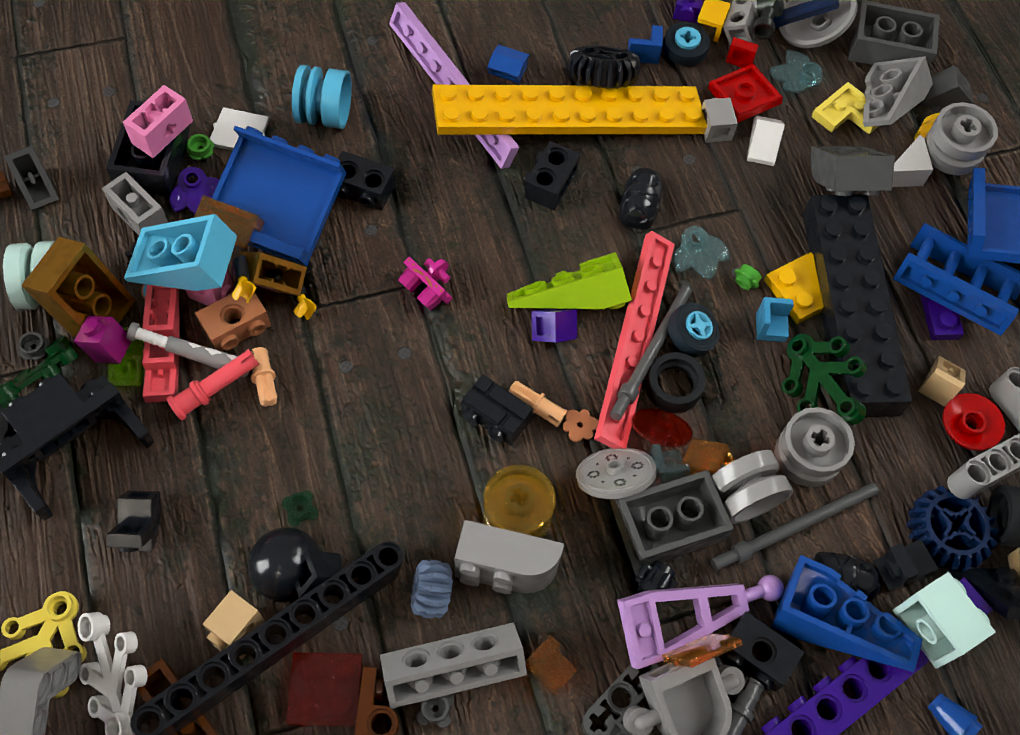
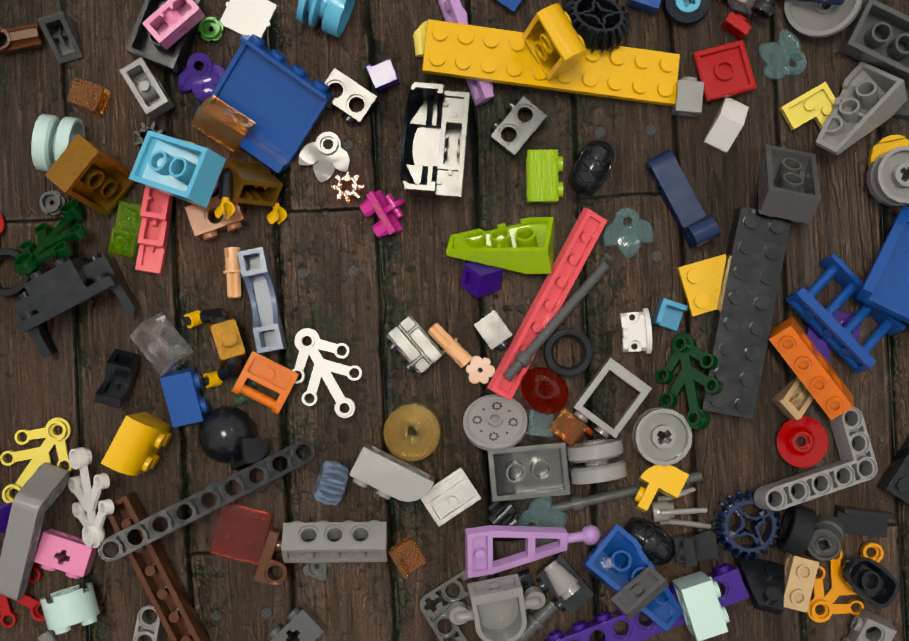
camera: 20 degrees right, 25 degrees up
(69, 224) = (88, 95): none -> clear orange panel
(103, 339) = (108, 219): magenta brick -> none
(169, 586) = (137, 444): none -> yellow brick
(181, 347) = (181, 241): light grey piece -> none
(186, 468) = (161, 344): none -> clear brick
(200, 392) = (182, 277): coral pin -> none
(223, 525) = (184, 396): none -> blue brick
(231, 621) = (181, 480): tan brick -> none
(266, 450) = (225, 343): none -> torso
(304, 396) = (265, 309): none -> sand blue arch
(326, 474) = (269, 375): none -> orange plate
(348, 246) = (322, 159): none -> light grey plate
(380, 264) = (348, 180): none -> clear orange gear
(394, 462) = (323, 369): none -> white plant
(397, 155) = (383, 76): none -> panel
(427, 120) = (419, 39): none -> light yellow arm
(465, 205) = (434, 141): none -> piece
(570, 68) = (554, 41): none -> yellow brick
(583, 376) = (493, 331): none -> brick
(584, 577) = (450, 496): none -> plate
(592, 215) = (542, 176): none -> lime brick
(693, 329) = (604, 314): black wheel -> none
(702, 650) = (516, 579): clear orange piece -> none
(706, 572) = (543, 515): none -> clear light blue plate
(746, 348) = (636, 331): none -> white piece
(747, 212) = (681, 200): none -> dark blue beam
(747, 277) = (660, 266): bright green plate -> none
(750, 395) = (627, 377): none -> light grey window
(759, 637) = (562, 581): none -> light grey cone
(833, 494) = (659, 478): none -> yellow brick
(848, 536) = (663, 511): none -> light grey plant
(862, 622) = (639, 592): none -> flat silver plate
(913, 165) = (850, 186): white slope -> none
(952, 338) = (811, 368): none -> orange brick

